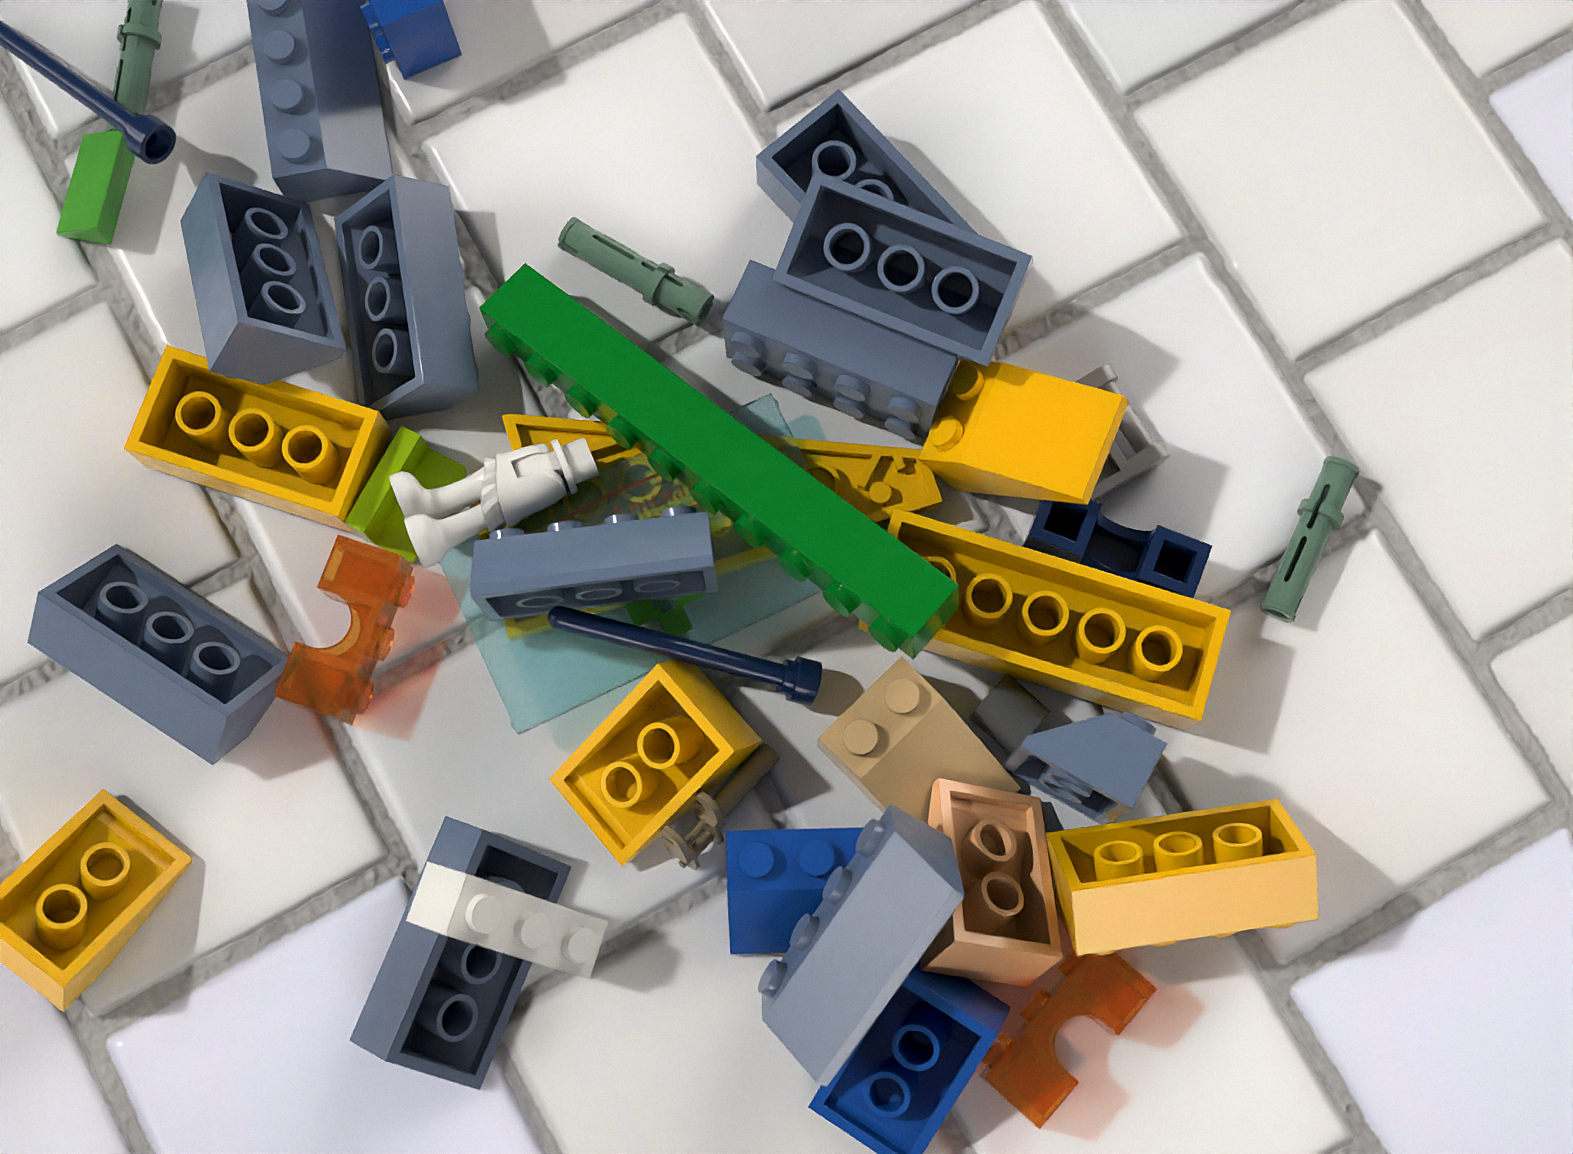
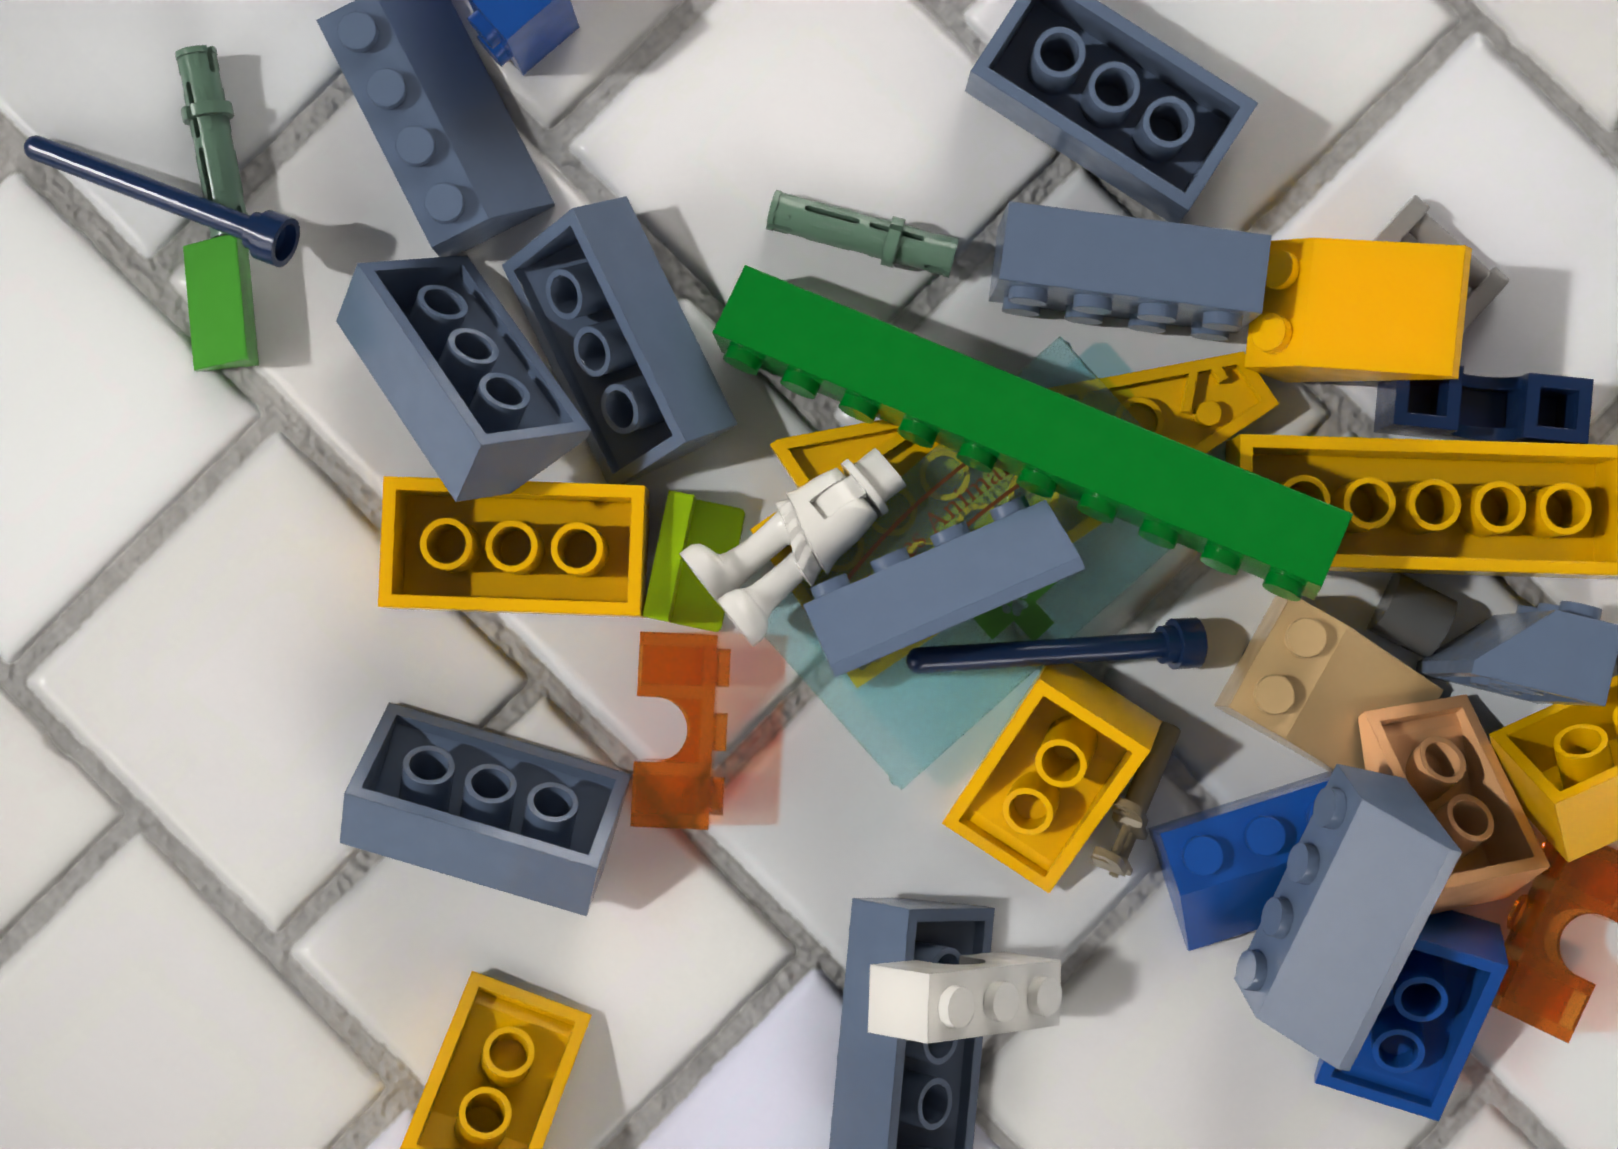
camera: 20 degrees left, 10 degrees up
(902, 268) = (1187, 168): sand blue slope -> none

